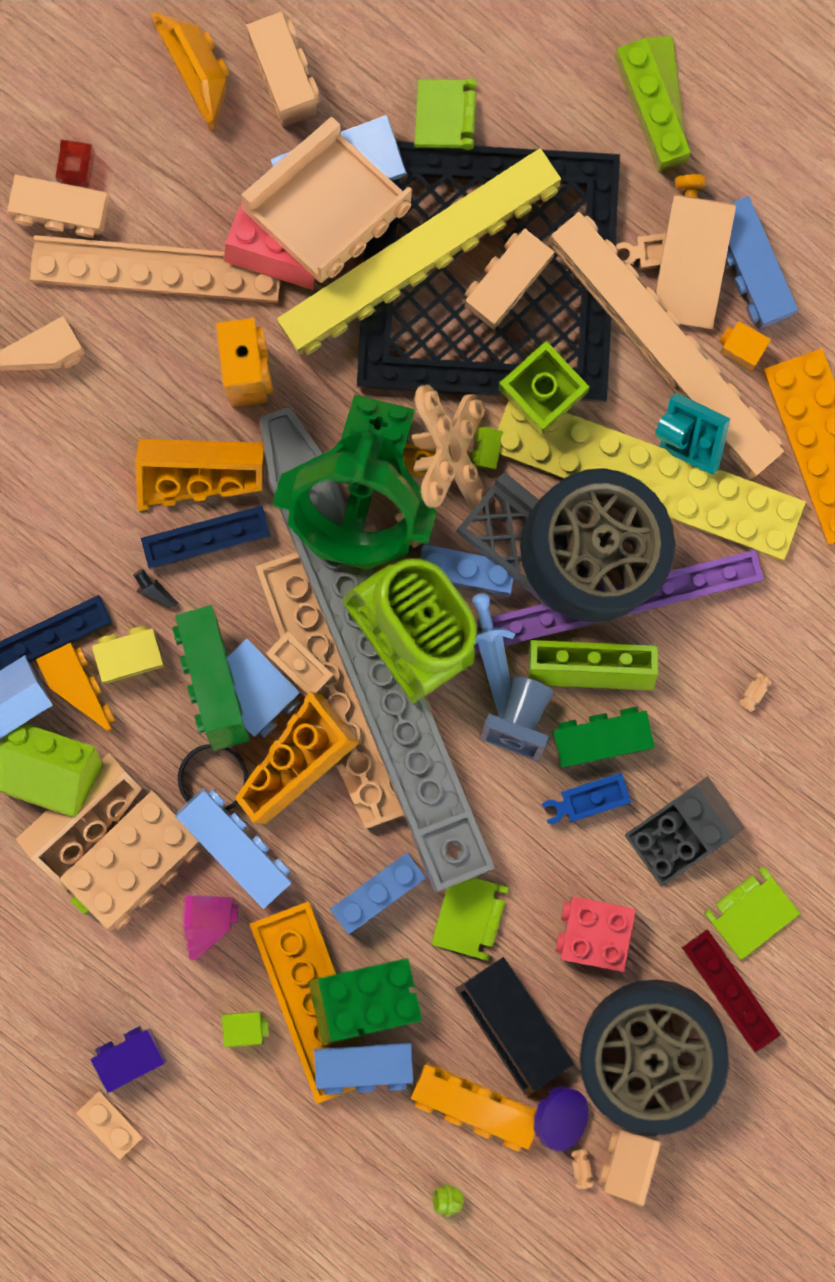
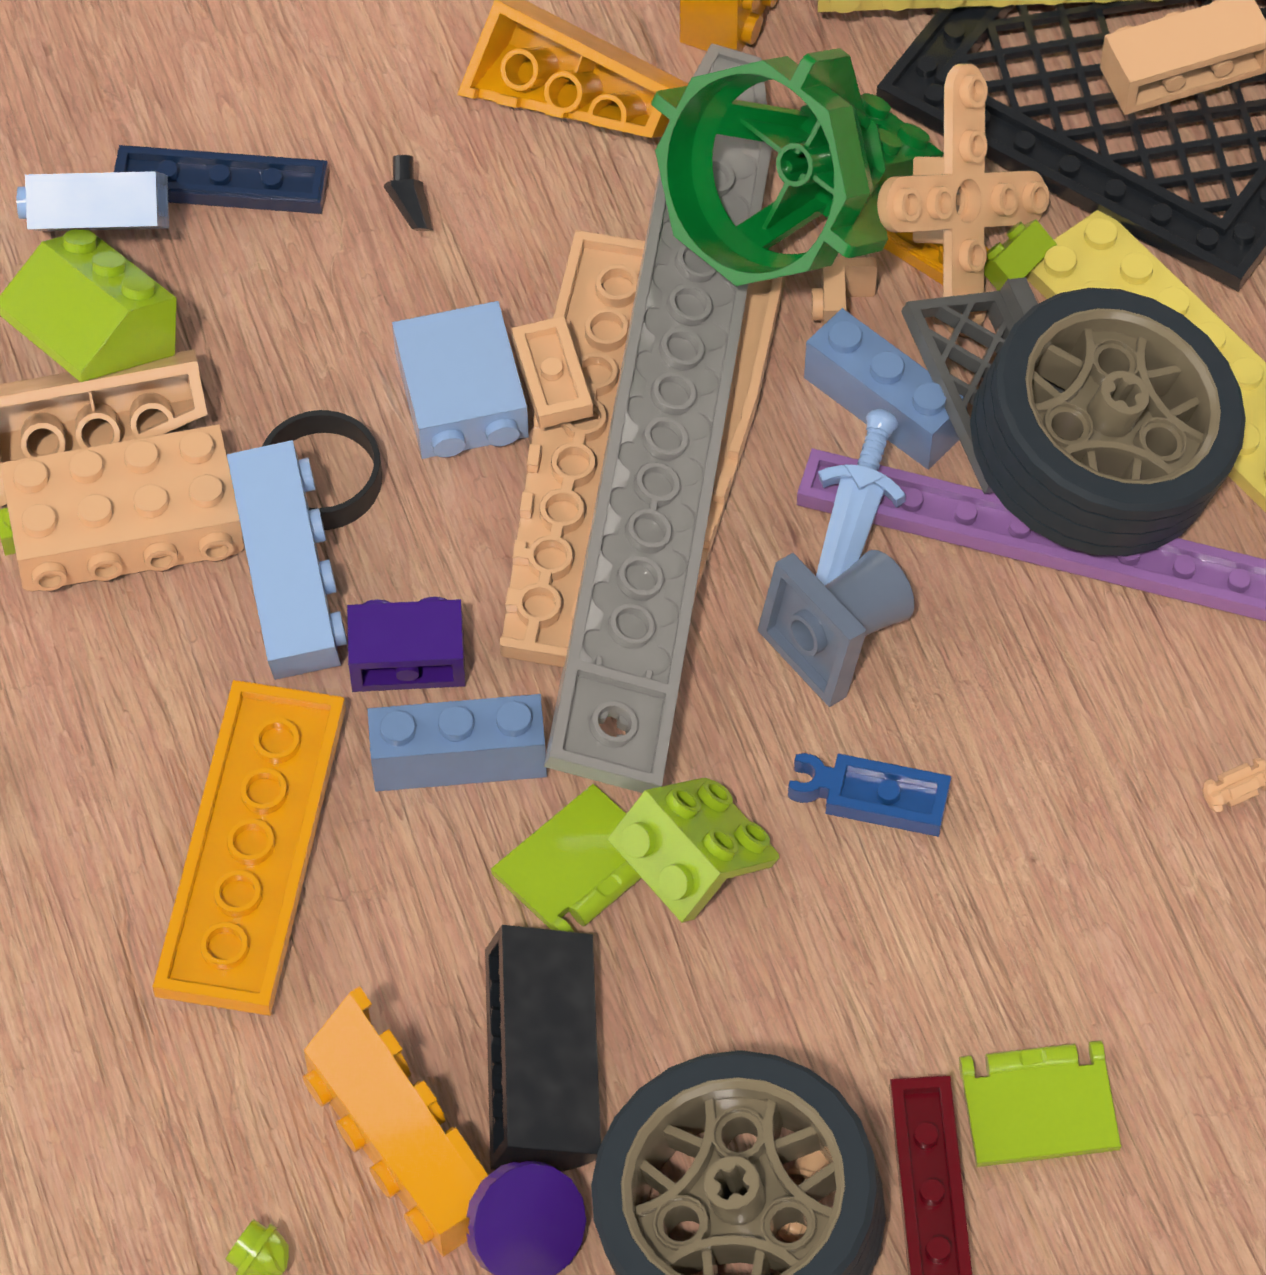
camera: 30 degrees right, 25 degrees down
(68, 678) = (208, 237): light orange slope -> none
(128, 655) = (312, 250): light yellow piece -> none
(205, 537) = (530, 165): dark blue plate -> none
(207, 921) = (172, 617): dark pink wedge -> none
(210, 678) = (406, 310): green wedge -> none
(244, 1028) = (119, 821): lime brick -> none
(302, 754) = (456, 488): light orange wedge -> none
(318, 853) = (406, 644): none -> dark purple brick
(363, 1067) = (262, 958): medium blue brick -> none
(364, 1000) = (349, 866): green piece -> none
(415, 624) = (760, 377): lime brick -> none
(523, 880) = (689, 842): none -> lime bracket
(543, 387) = (1153, 198): lime brick -> none
(593, 665) = (1003, 602): lime brick -> none
(595, 933) = (763, 979): coral brick -> none
(602, 737) = (951, 717): green brick -> none
(684, 831) = (1003, 915): dark grey slope -> none

